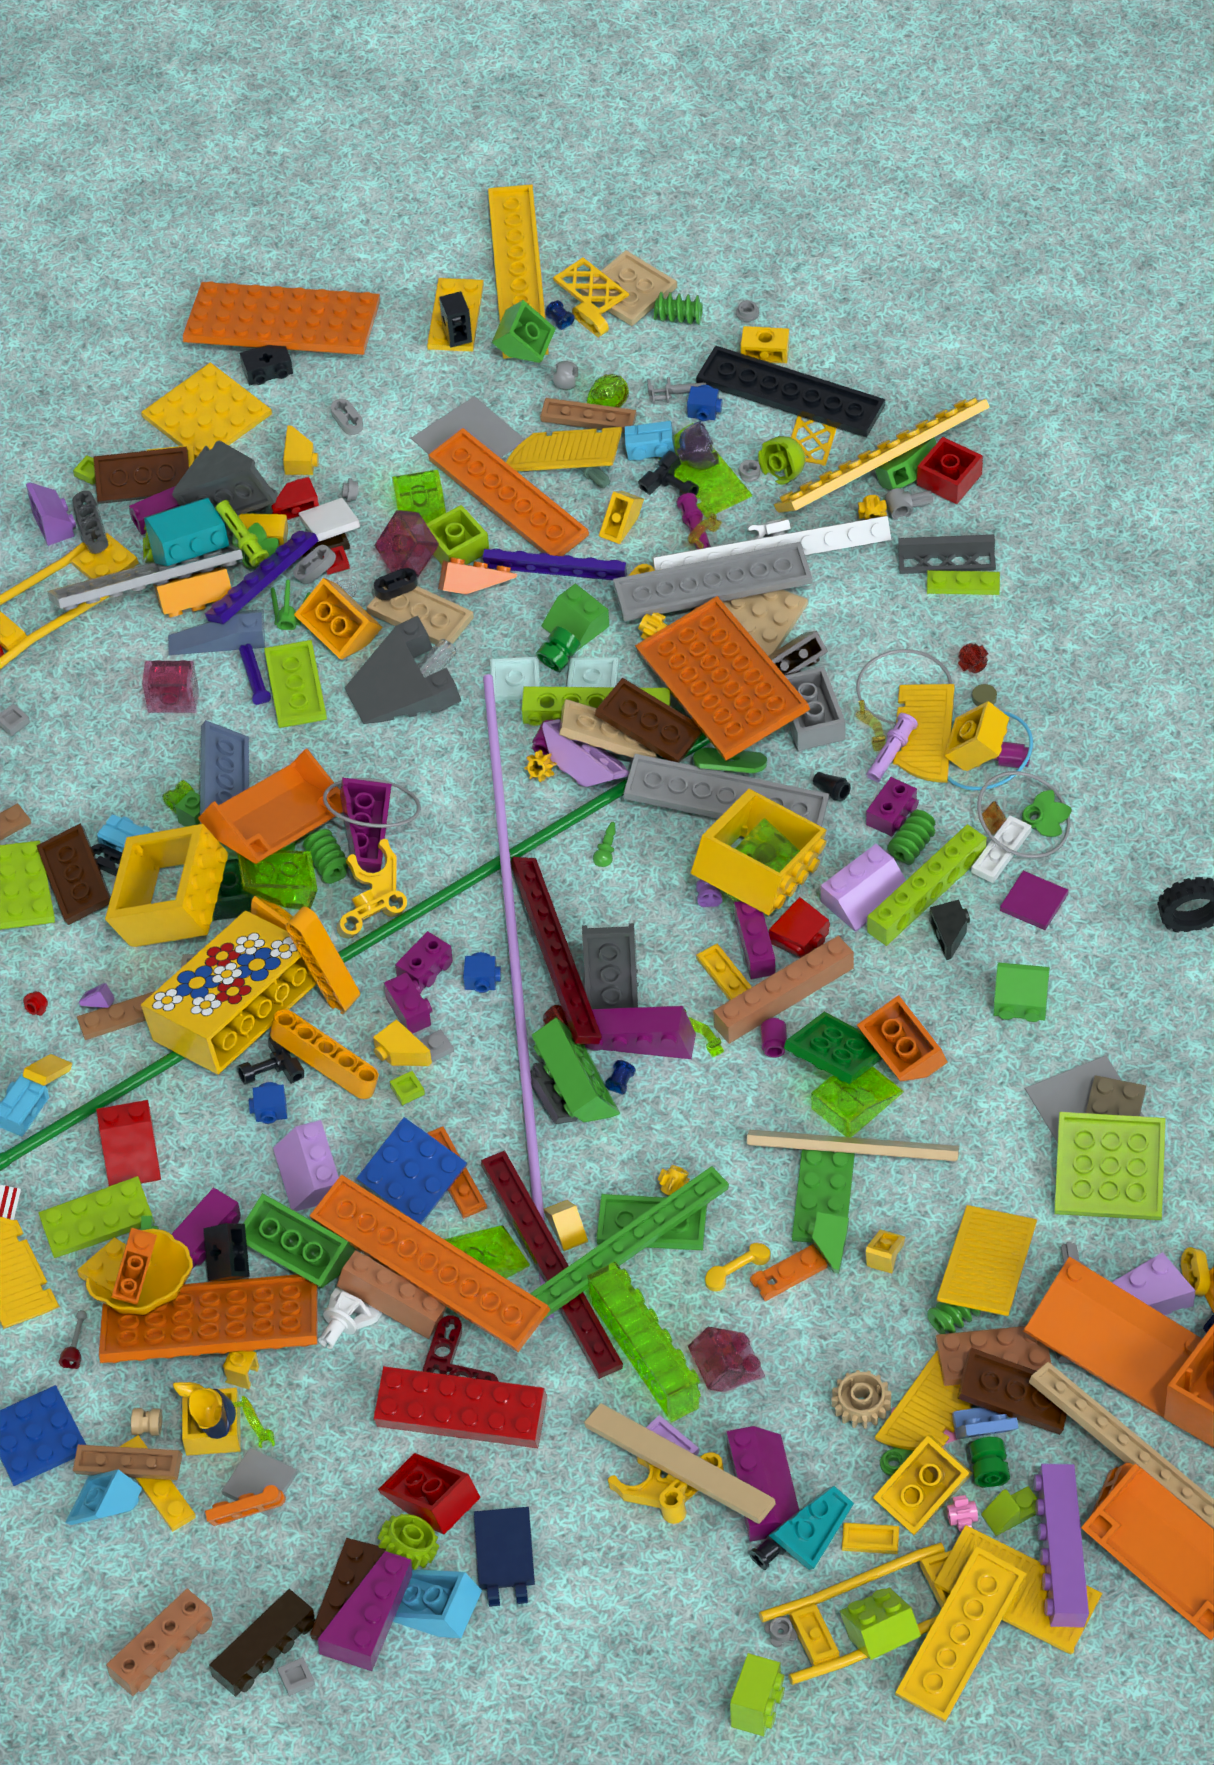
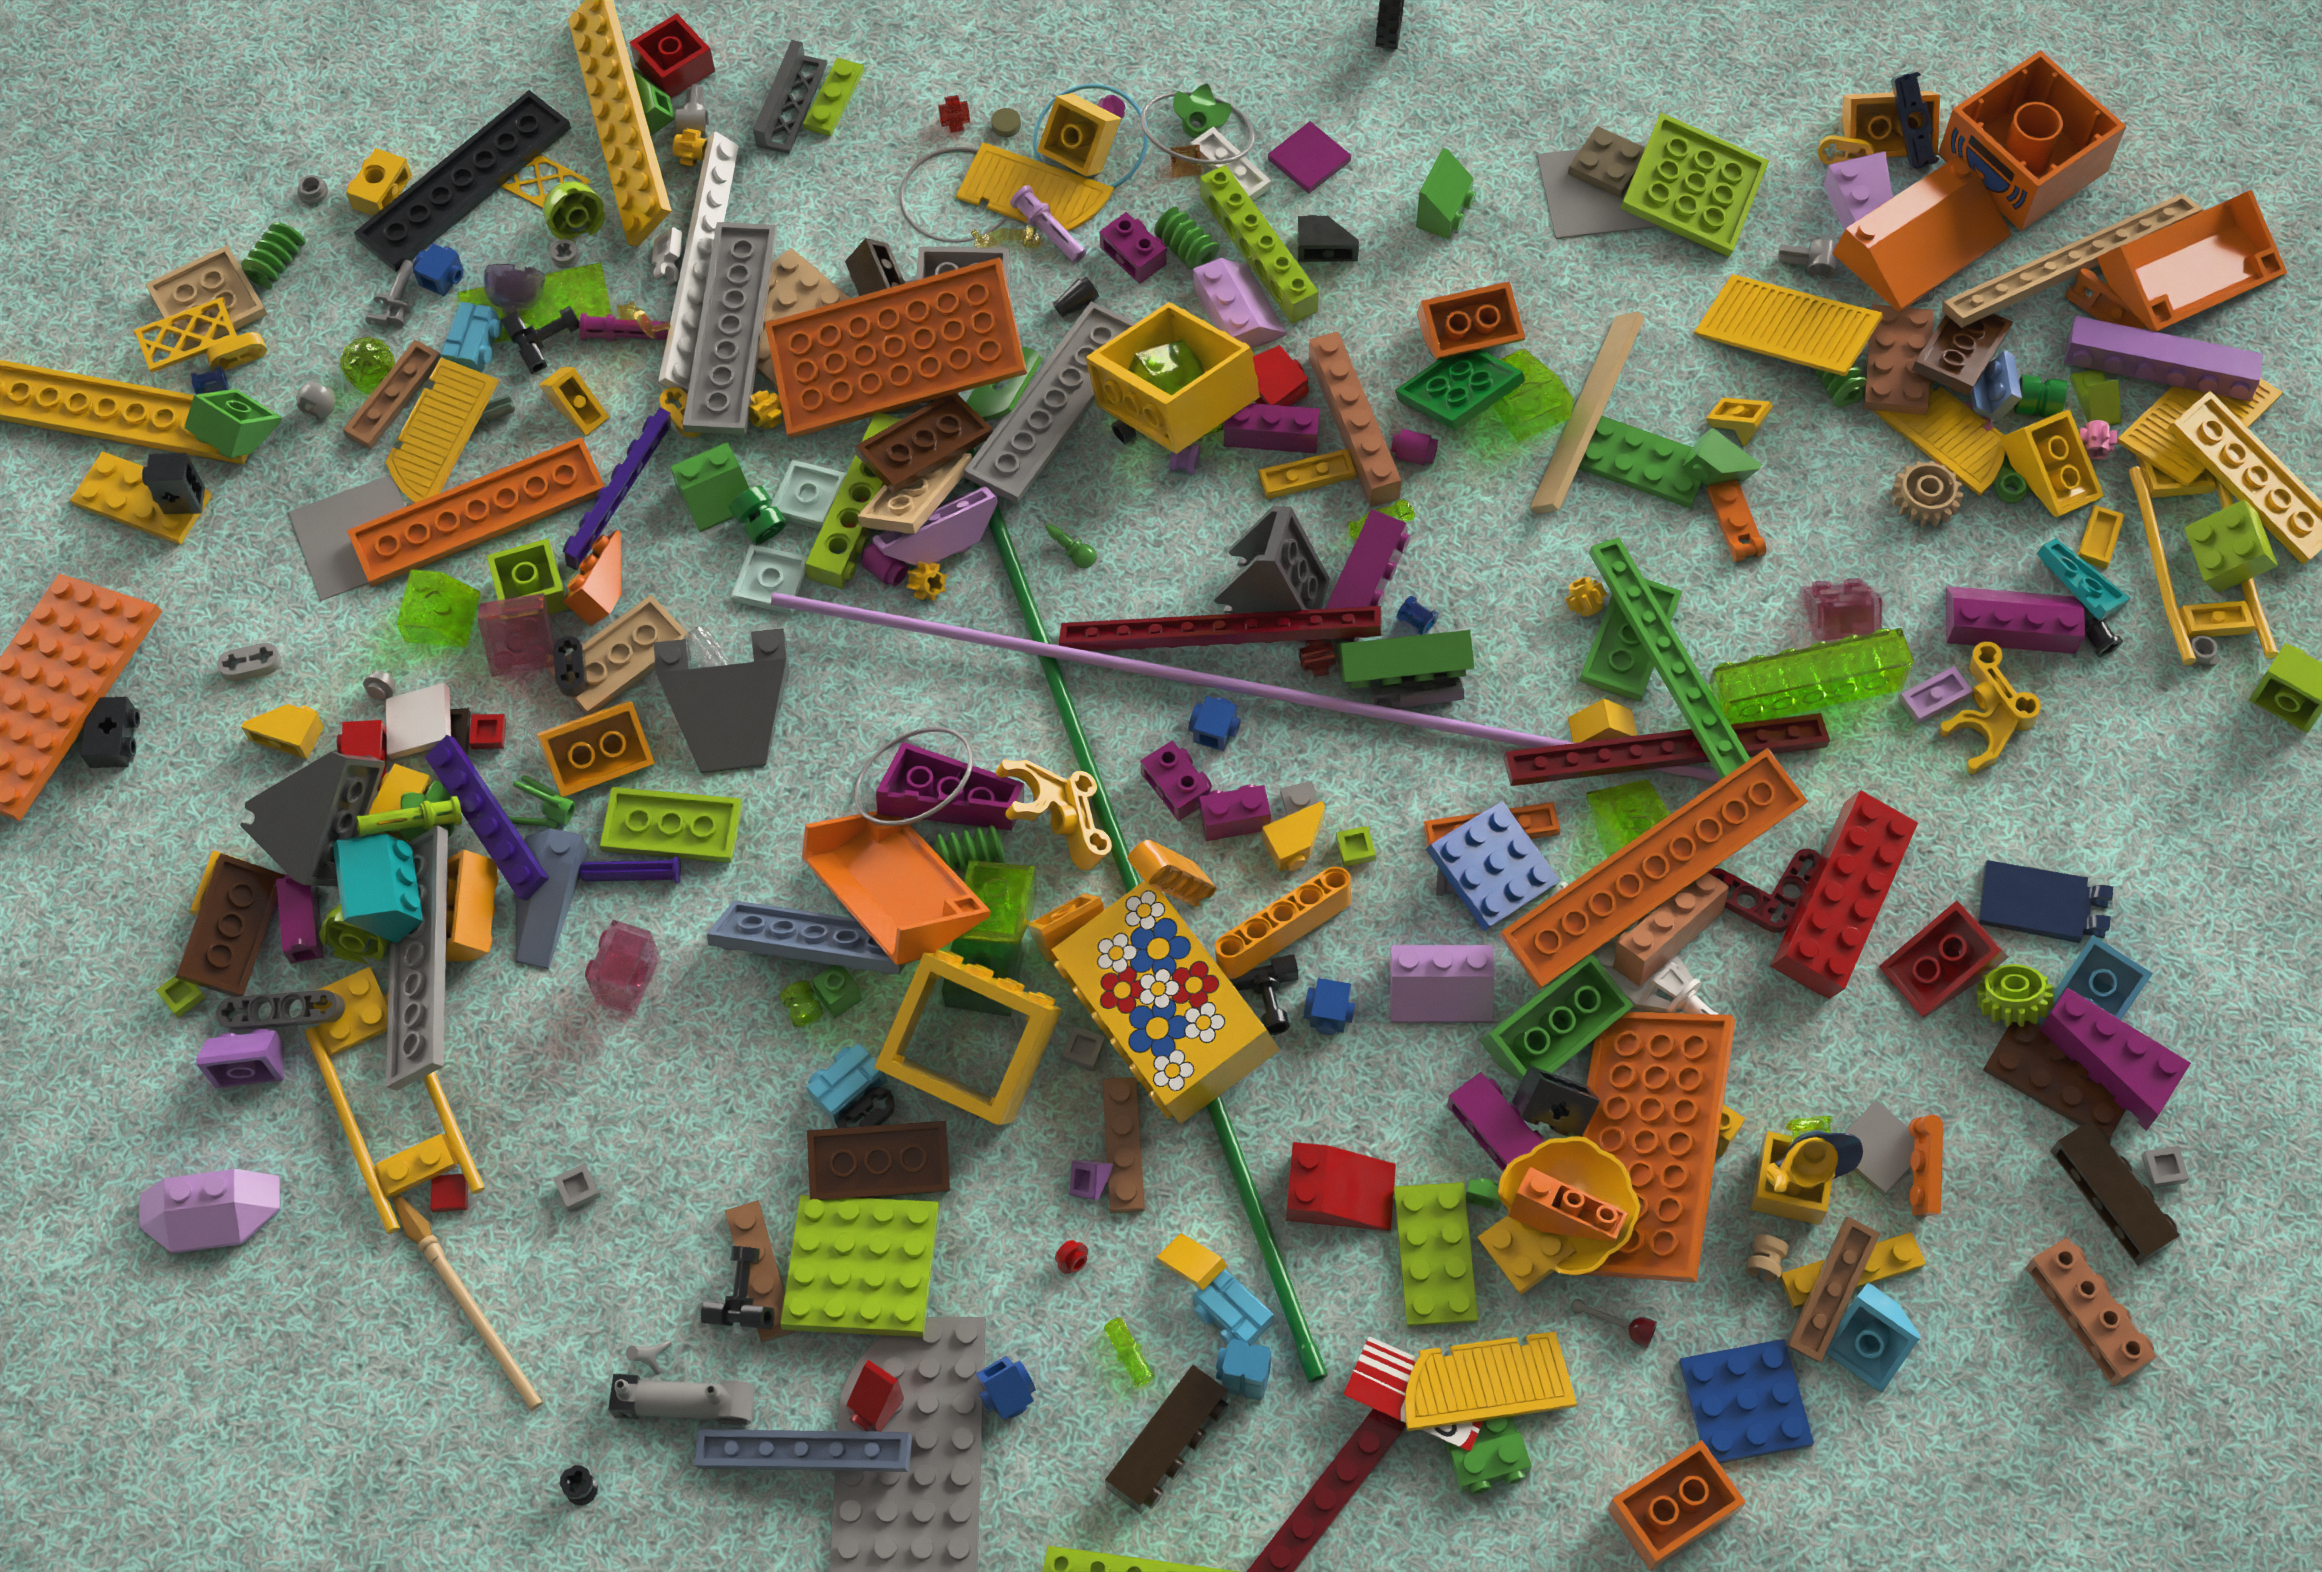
camera: 75 degrees left, 10 degrees up
(206, 410) = (151, 827): yellow plate -> none
(314, 564) = (497, 753): light grey beam -> none
(680, 1463) = (1983, 683): tan tile -> none
(716, 1276) = (1725, 589): yellow bar -> none

